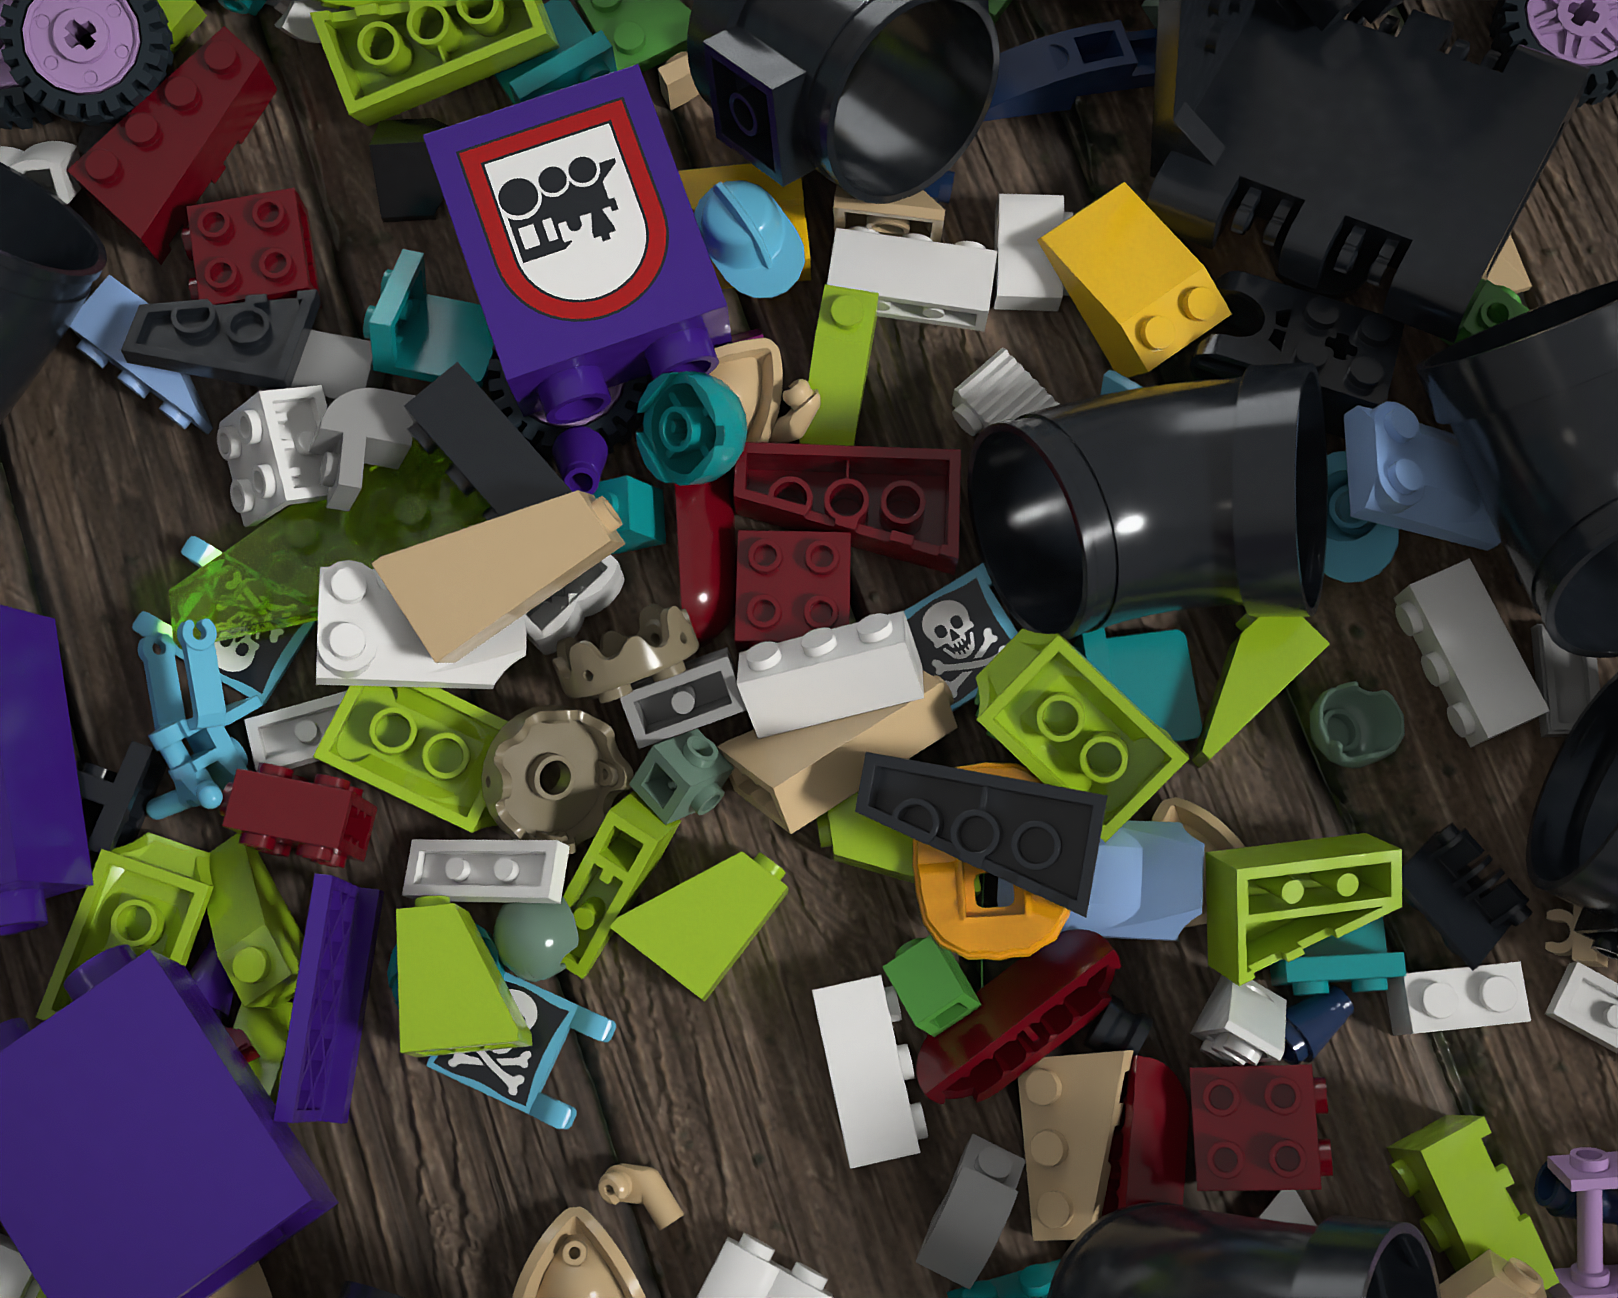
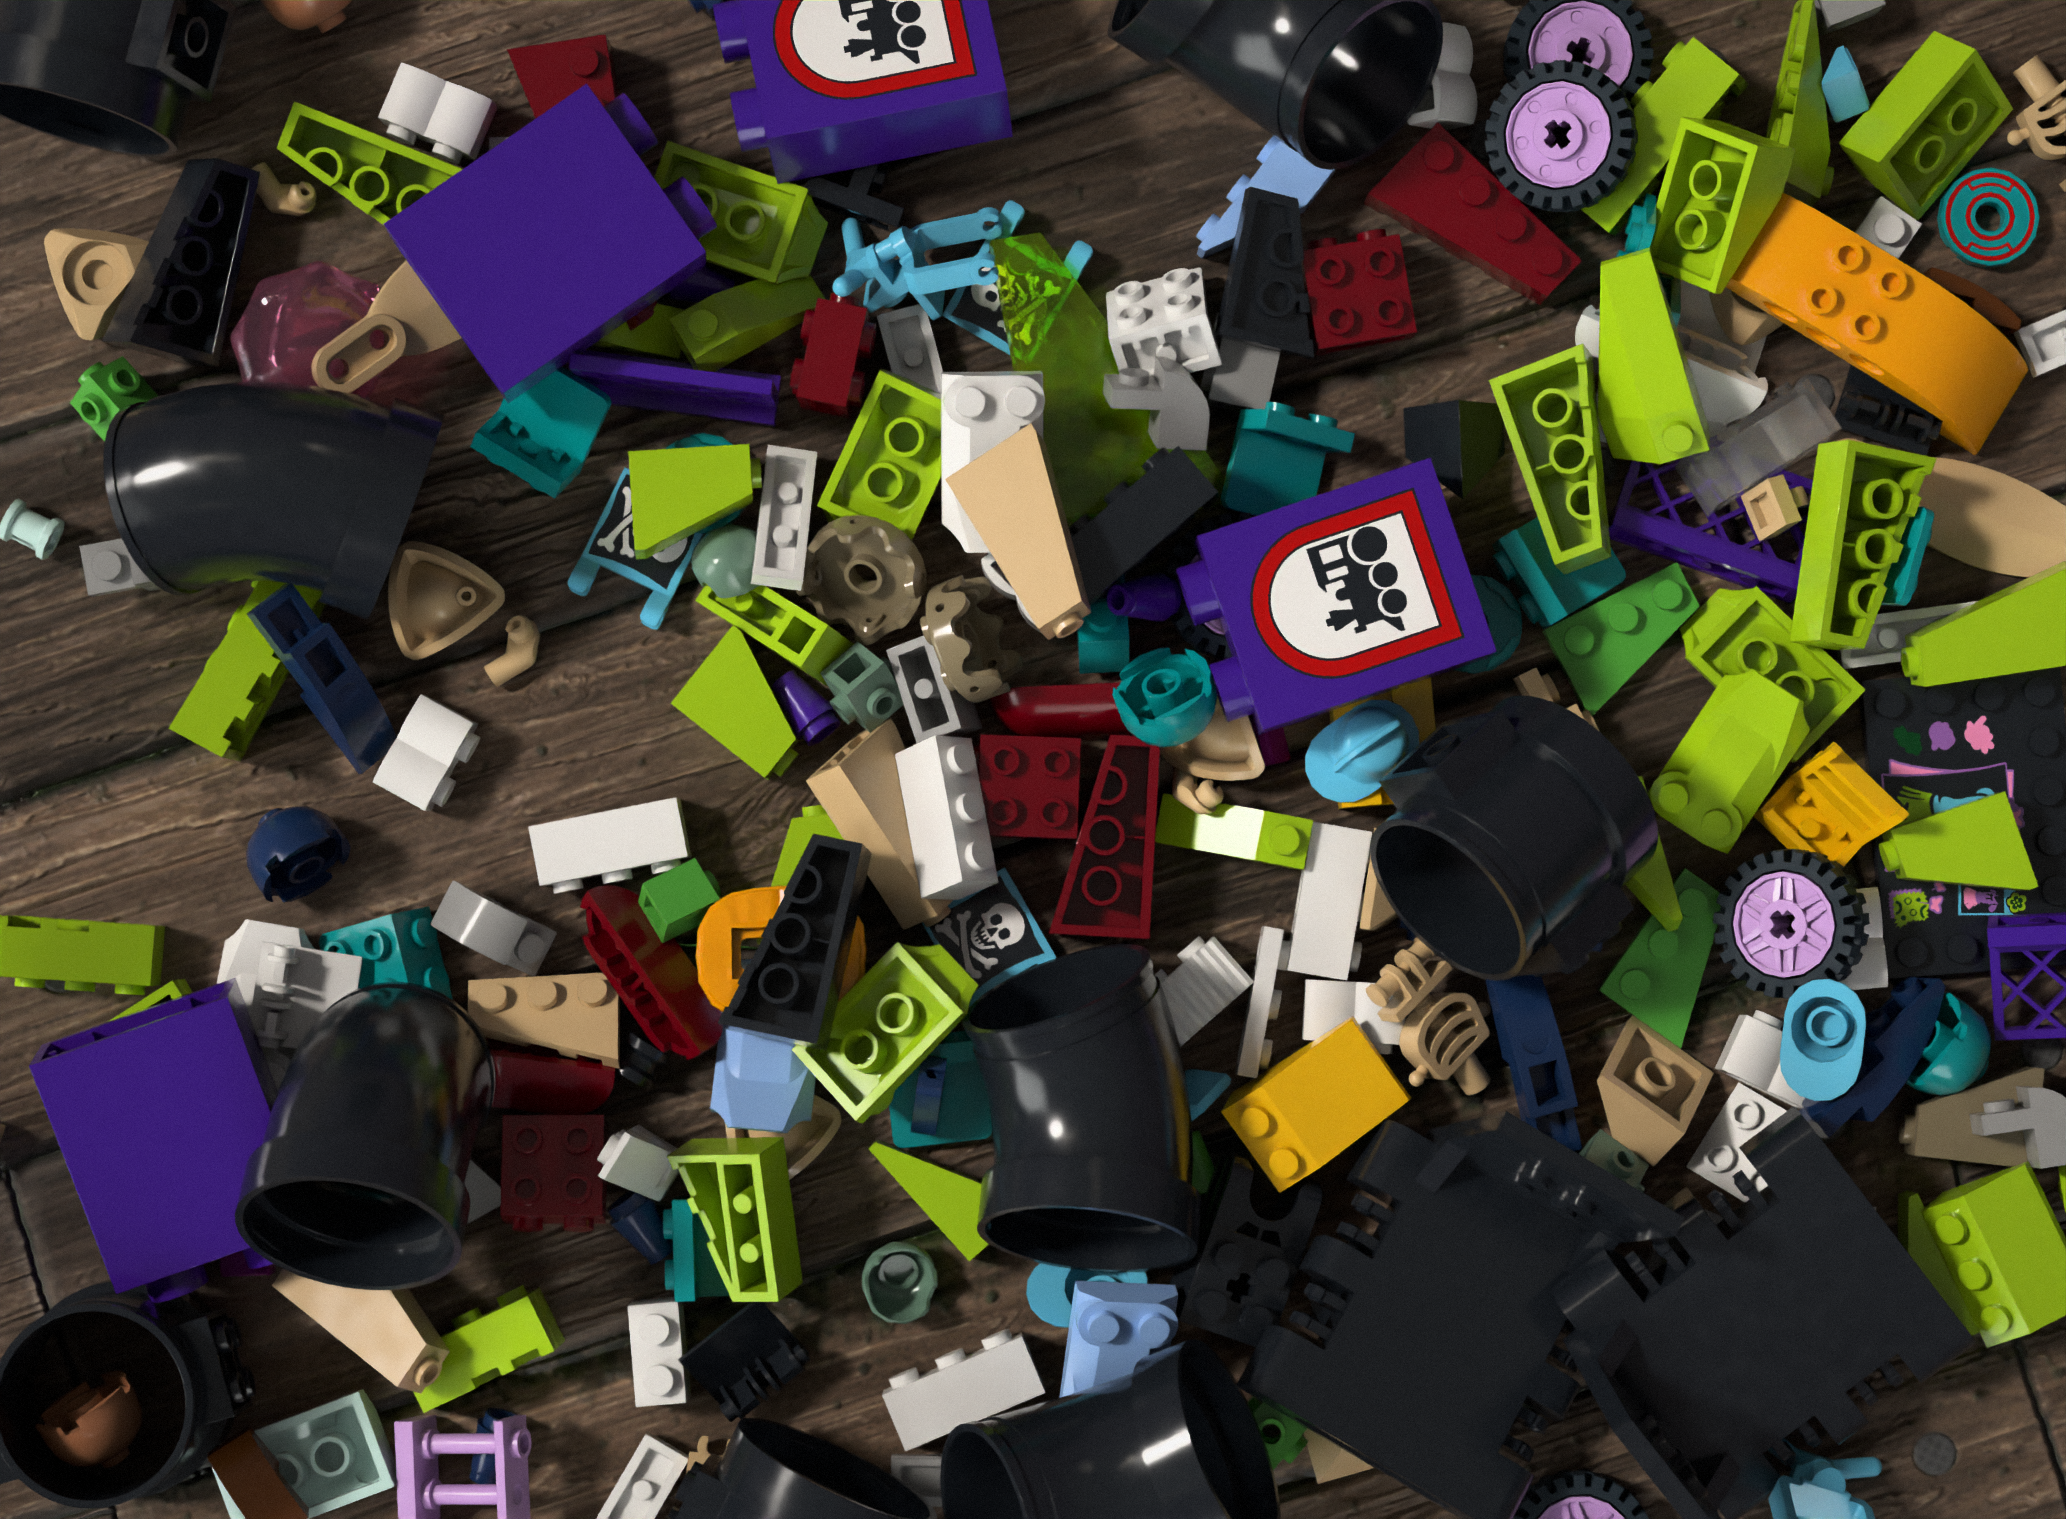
camera: 85 degrees right, 10 degrees up
(375, 1158) = (545, 431): none -> teal bracket
(706, 845) = (805, 708): none -> dark purple cone
(1036, 163) = (1432, 1037): none -> tan torso
(1065, 354) = (1262, 1002): none -> white plate
(1150, 687) = (928, 1095): none -> dark blue piece

